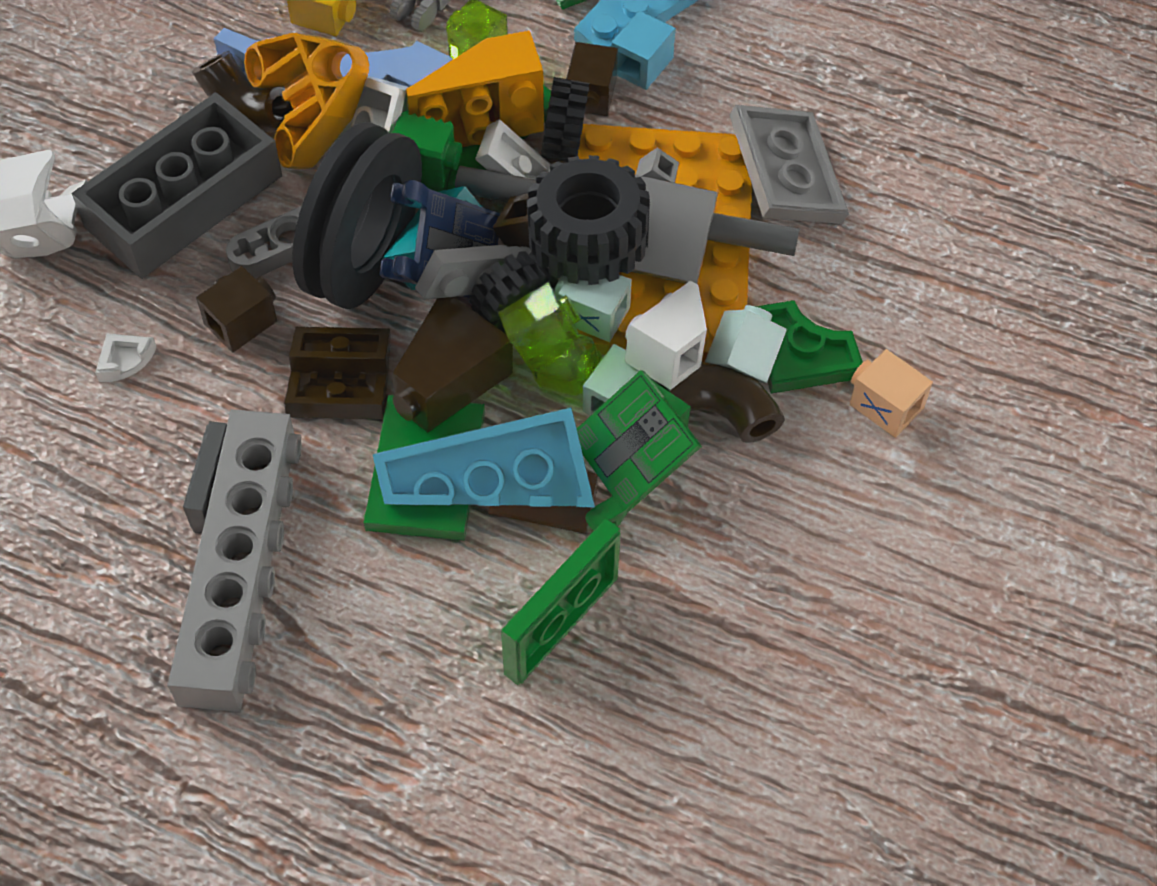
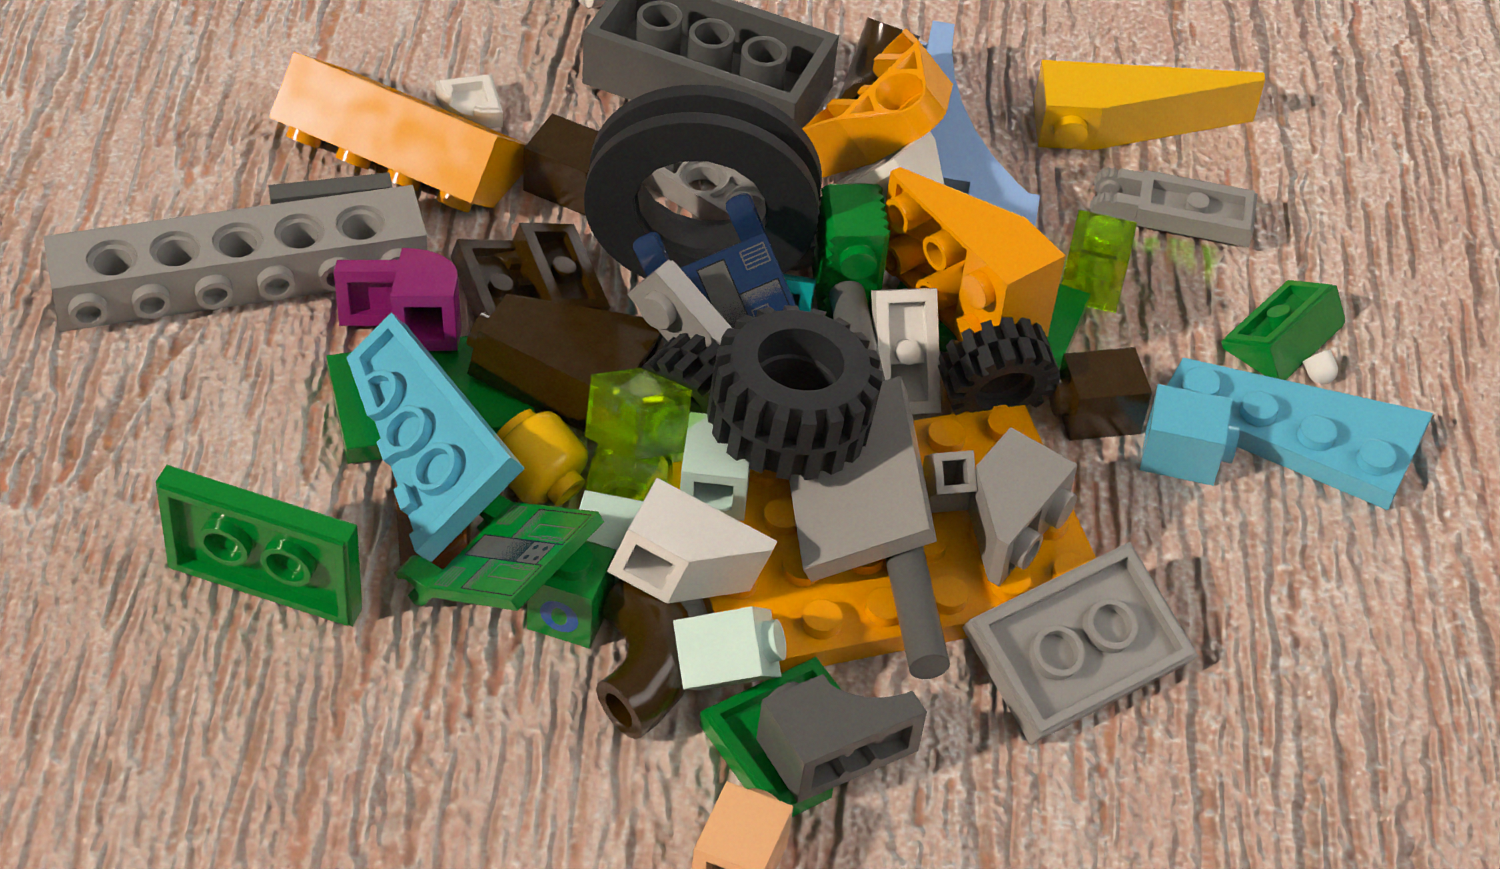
camera: 65 degrees right, 10 degrees down
(149, 409) = (398, 132): none -> light orange slope
(339, 439) = (415, 288): none -> magenta brick
(523, 400) = (548, 453): none -> yellow head
(690, 140) = (1017, 499): none -> light grey slope
(833, 316) = (832, 736): none -> dark grey arch

